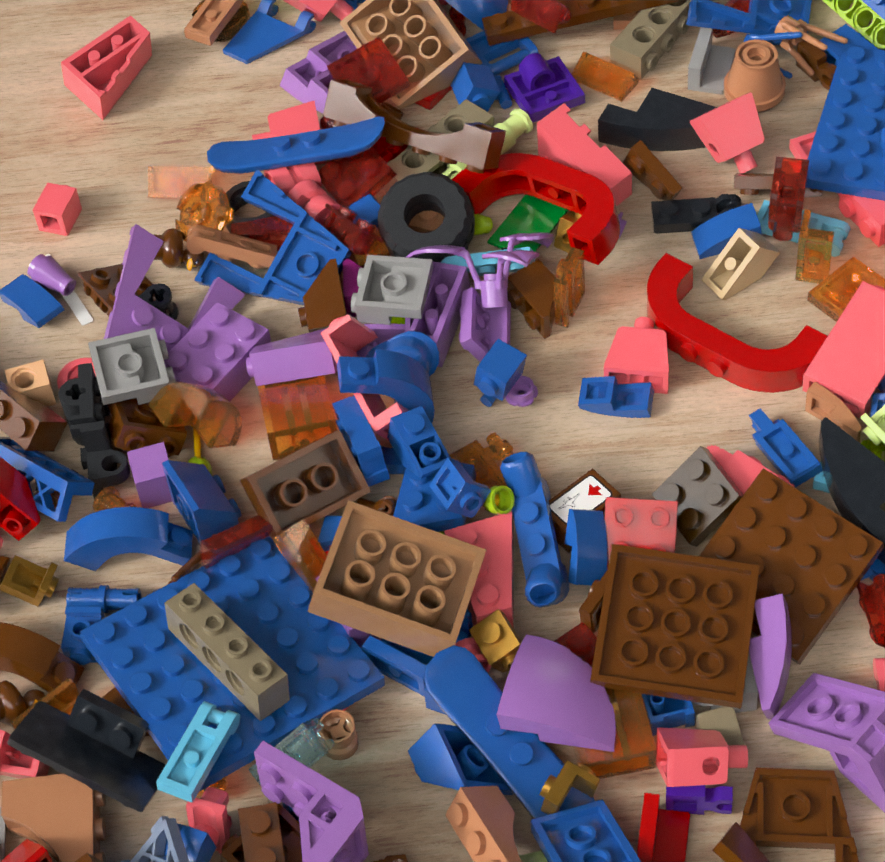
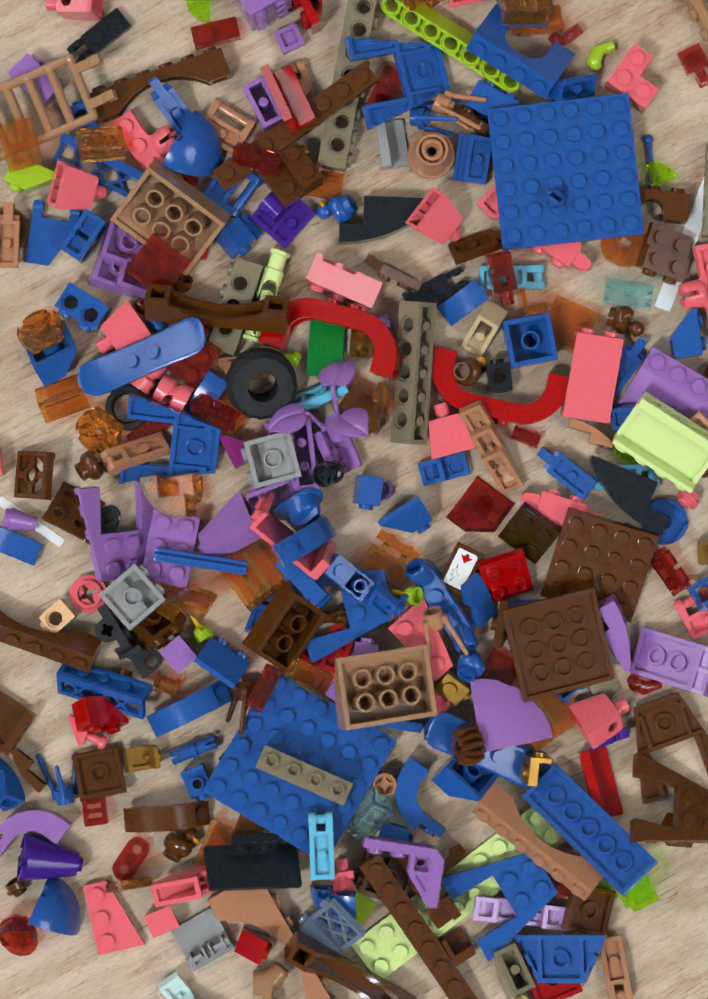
camera: 30 degrees left, 35 degrees up
(97, 232) = (23, 471): none -> reddish brown piece
(193, 133) = (54, 361): none -> blue slope
(206, 101) = (37, 341): none -> clear orange plate
(240, 364) = (200, 560): none -> blue axle
(254, 299) = (173, 495): none -> clear orange brick
(256, 98) = (85, 303): none -> blue brick
(298, 33) = (83, 236): none -> blue brick
(323, 299) = (222, 476): reddish brown slope -> none
(367, 751) = (407, 783): none -> blue arch
(456, 326) = (327, 473): none -> black wheel
(480, 696) = (468, 745): none -> reddish brown gear
(514, 532) = (436, 621): none -> nougat plant
(534, 418) = (408, 518): none -> blue slope
(536, 618) = (470, 666): none -> blue animal
(577, 46) = (295, 175): none -> reddish brown plate
(615, 94) = (339, 206): none -> blue animal
(623, 271) = (413, 382): none -> dark tan brick
(636, 445) = (480, 508): none -> clear red slope
(690, 384) = (492, 447): none -> nougat slope
(699, 294) = (469, 370): none -> reddish brown animal
(737, 315) = (498, 387): none -> black brick
(743, 395) = (526, 437): none -> clear red pin
(781, 753) = (641, 686): none -> clear red arm
(792, 286) = (529, 341): none -> blue slope
(801, 103) = (472, 159): none -> blue plate

